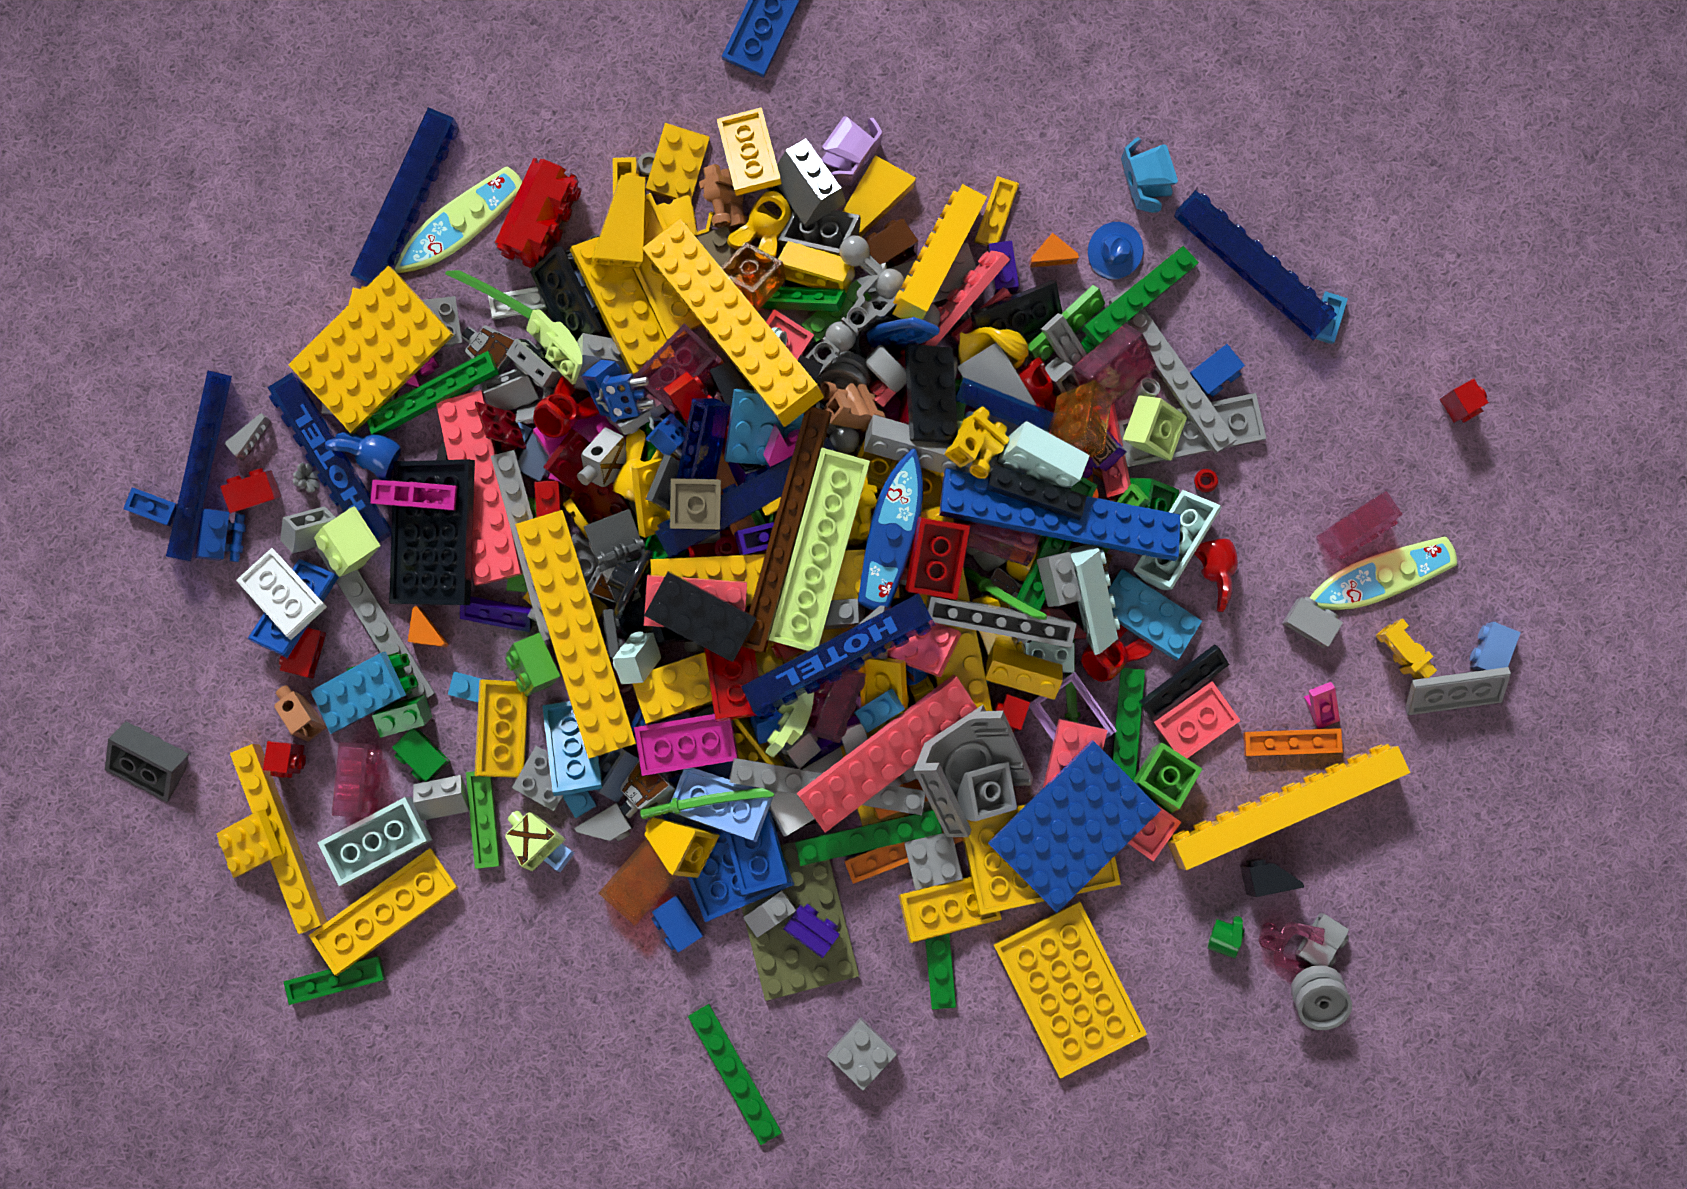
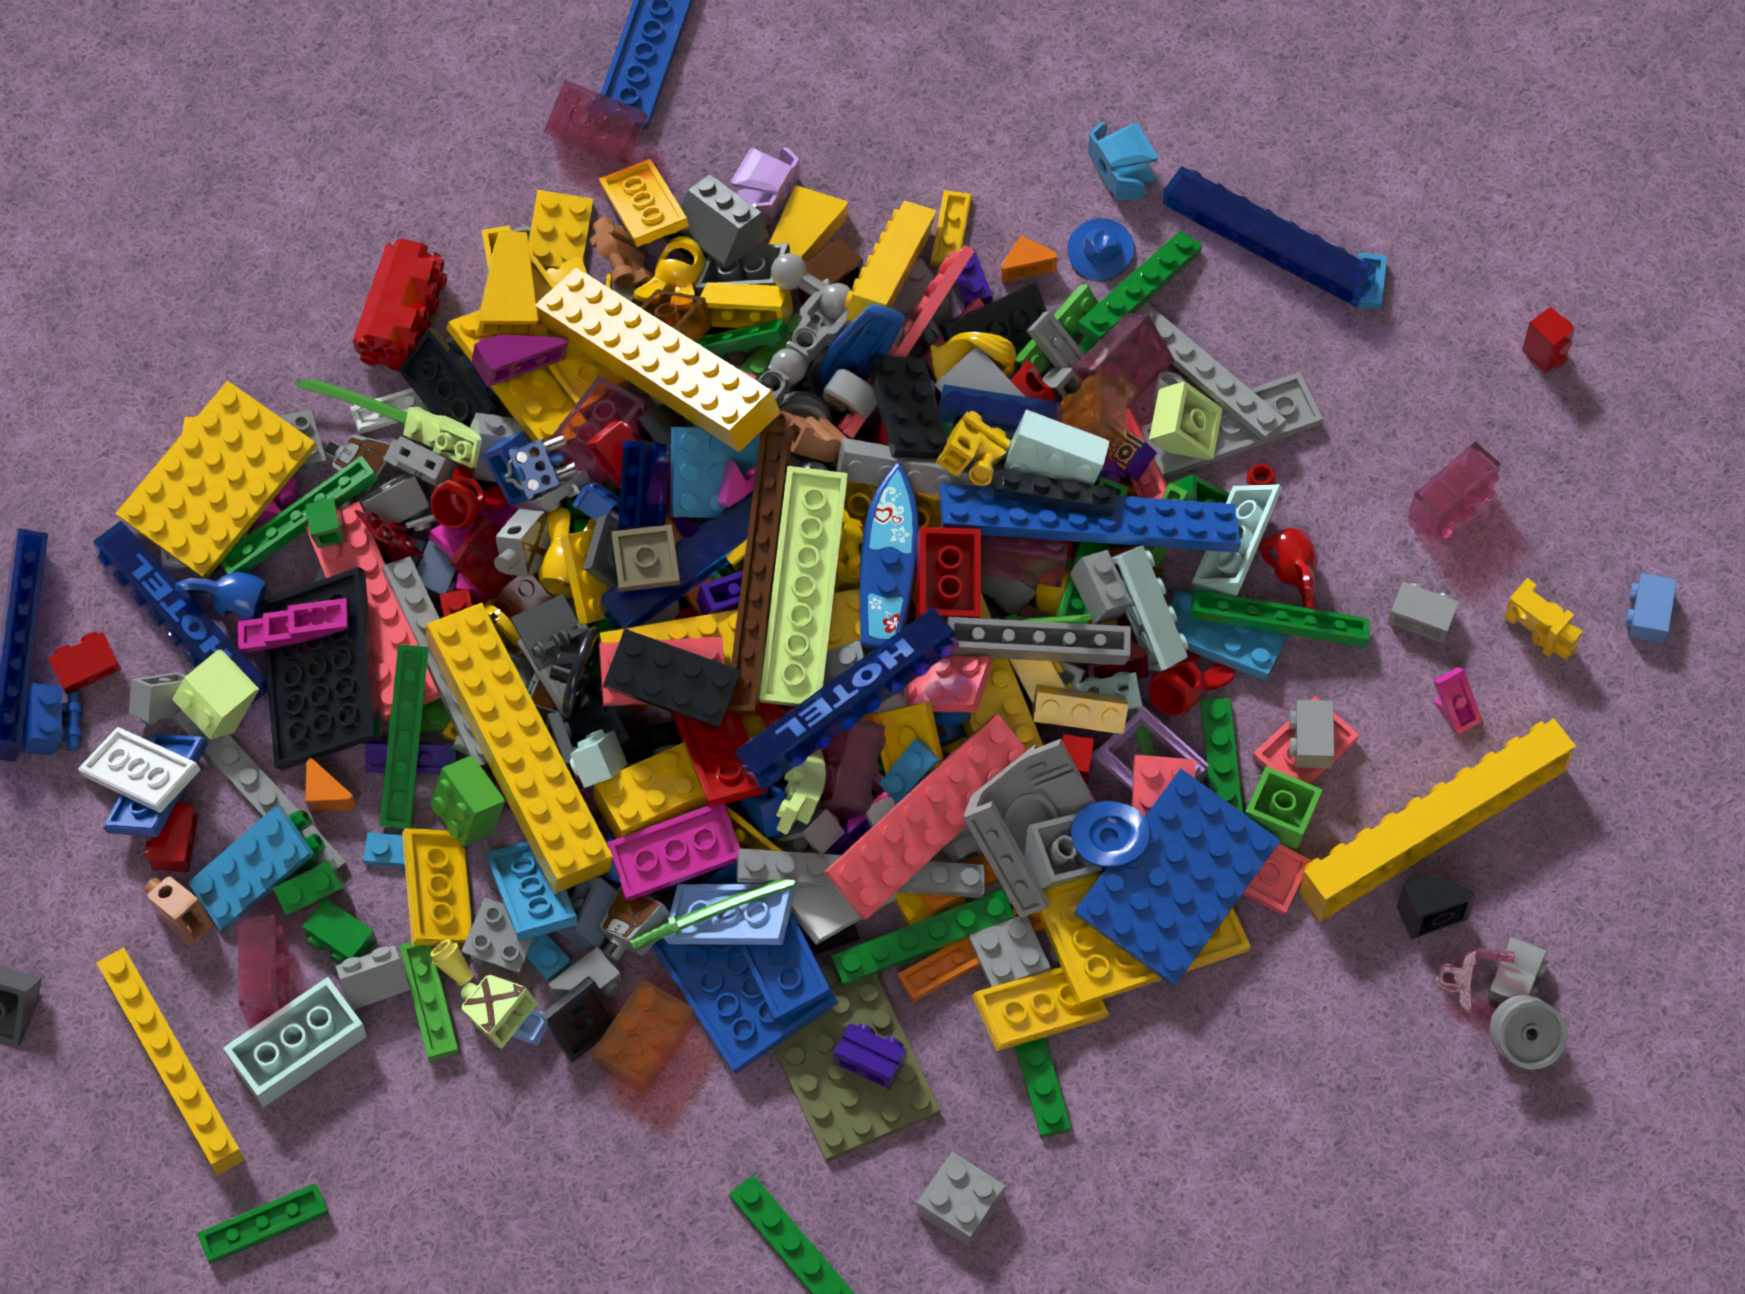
camera: 10 degrees left, 20 degrees down
(245, 439) = (71, 605): light grey slope -> none
(249, 843) = (133, 1067): yellow plate -> none
(284, 759) = (166, 959): red brick -> none
(306, 478) = (151, 640): light grey plant -> none
(383, 912) = (316, 1126): yellow plate -> none
(406, 196) = (236, 311): clear blue brick -> none
(450, 409) = (325, 522): none -> green brick
(459, 221) = (304, 332): piece -> none
(489, 603) = (403, 736): none -> green plate
(502, 792) = (451, 961): none -> light yellow cone
(594, 860) = (579, 1019): none -> black plate
(617, 290) = (515, 355): none -> magenta slope
(677, 924) = (697, 1082): blue brick -> none
(680, 846) = (690, 972): yellow slope -> none
(720, 70) = (595, 123): none -> clear pink brick
(770, 913) = (813, 1043): light grey slope -> none
(1023, 781) = (1104, 828): none -> blue hat
(1070, 989) = (1212, 1083): yellow plate -> none
(1184, 683) = (1275, 707): black plate -> none
(1197, 613) = (1280, 618): none -> green plate
(1204, 718) = (1312, 734): none -> light grey brick
(1216, 370) = (1250, 354): blue brick -> none
(1227, 937) = (1395, 984): green piece -> none
(1292, 742) = (1429, 751): orange plate -> none
(1385, 575) = (1502, 548): piece -> none
(1457, 691) = (1615, 657): light grey tile -> none

